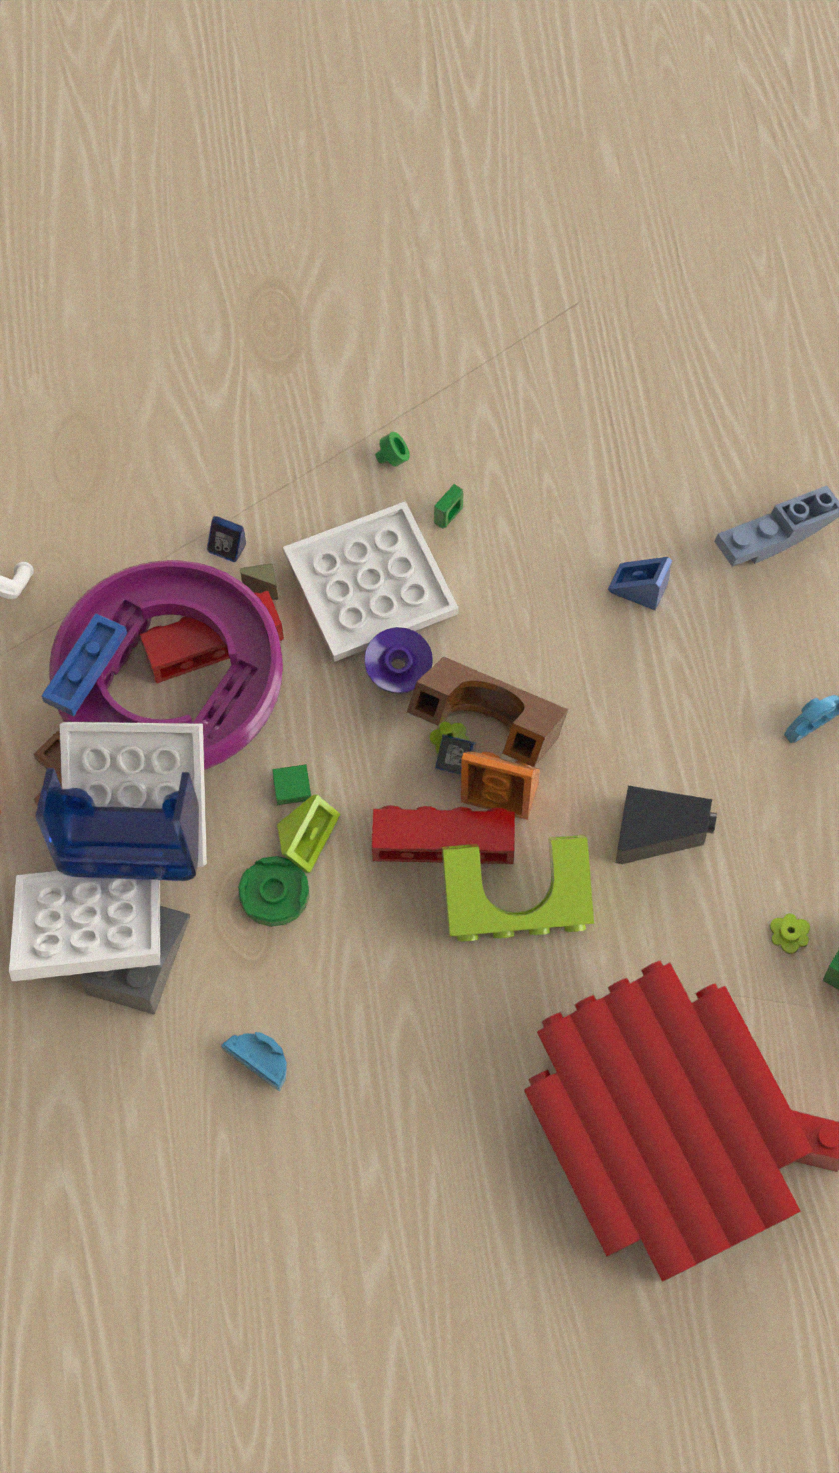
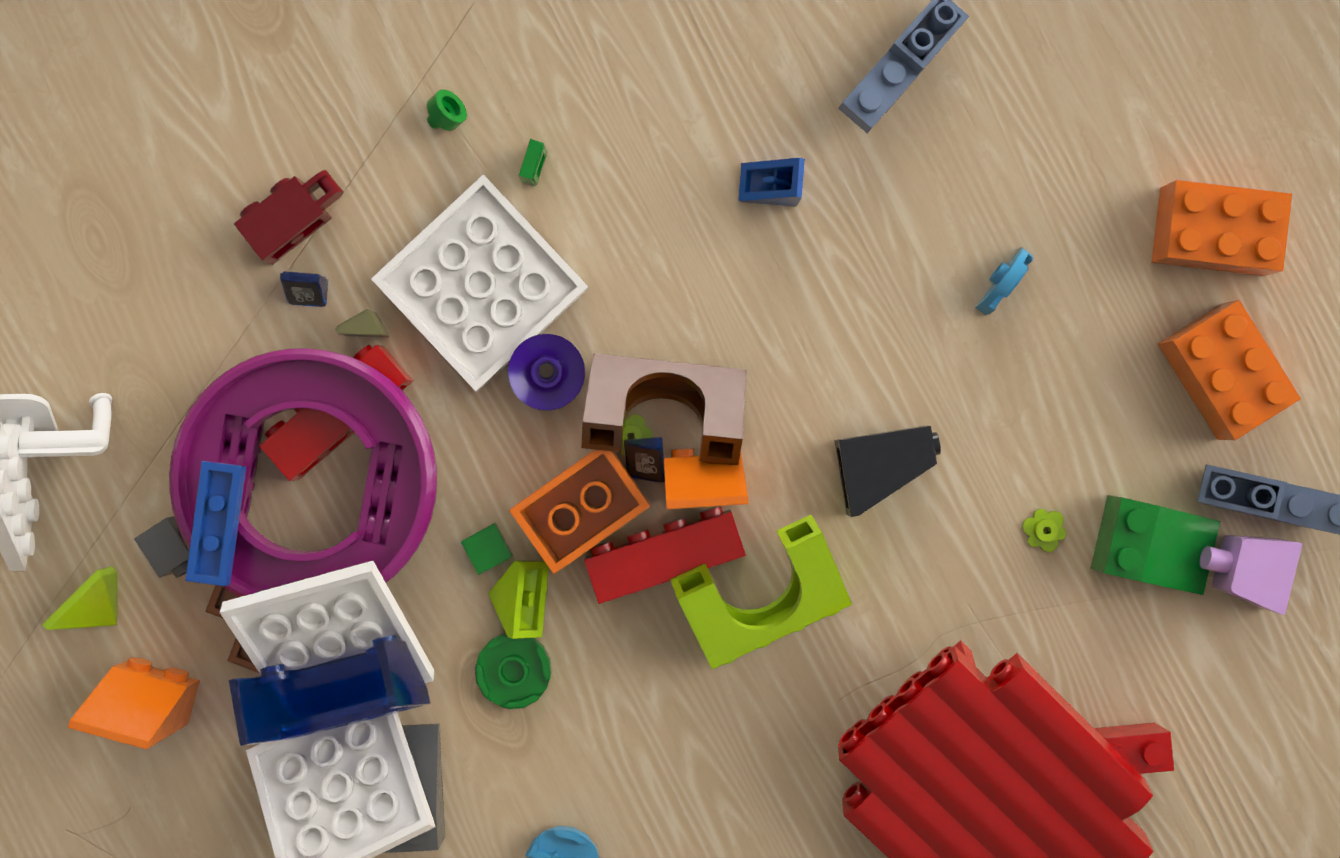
camera: 25 degrees left, 25 degrees up
(26, 688) = (164, 548): none -> dark grey brick
(237, 483) = (287, 215): none -> dark red brick
(386, 768) = (579, 508): none -> orange brick

